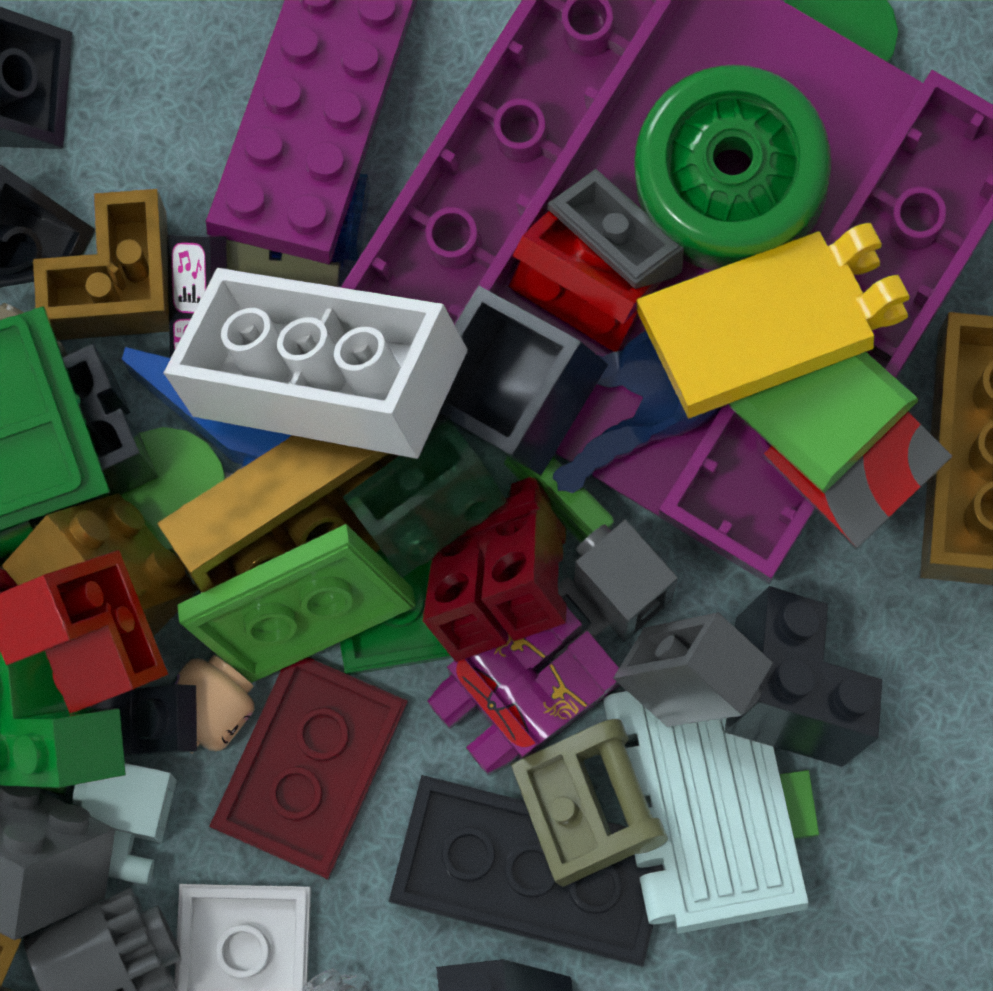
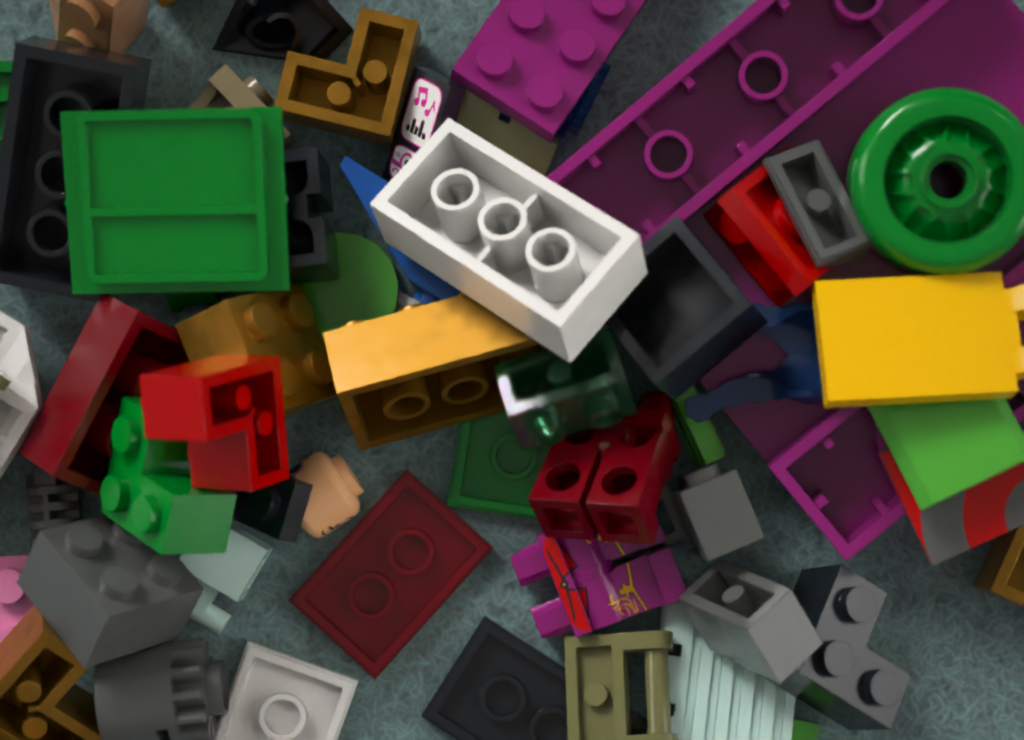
camera: 15 degrees right, 10 degrees up
(297, 604) = (423, 444): bright green tile -> none

